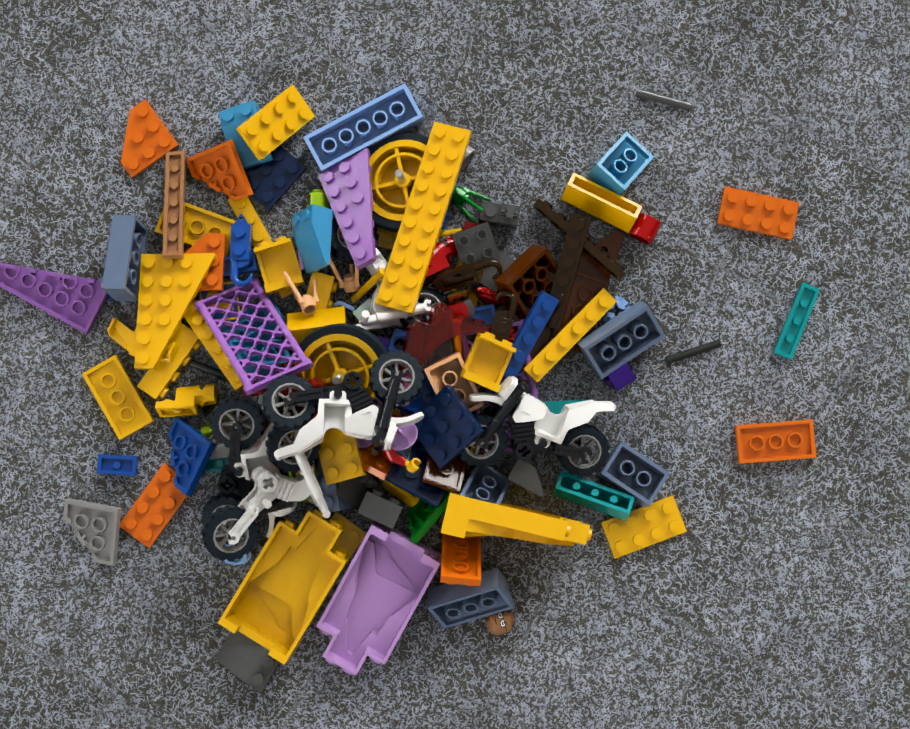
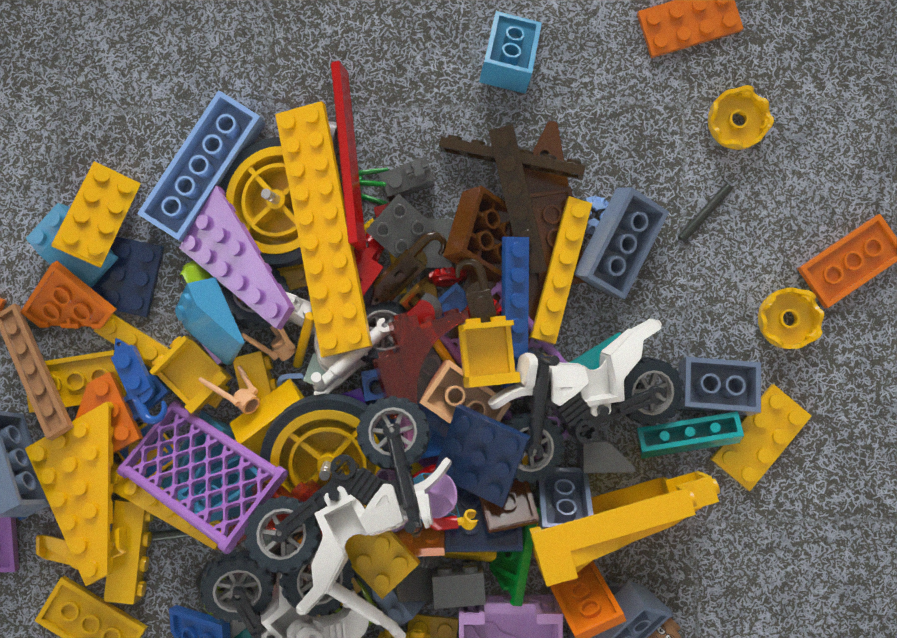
camera: 25 degrees left, 0 degrees up
(188, 400) = (172, 582): yellow plate -> none
(468, 176) = (348, 157): none -> red tile
(601, 202) = (513, 103): yellow brick -> none
(620, 377) = (644, 286): dark purple brick -> none
(645, 228) = (577, 105): red piece -> none
(721, 463) = (806, 314): none -> yellow plate
(765, 296) = (753, 110): none -> yellow plate
(796, 321) = (799, 115): teal plate -> none

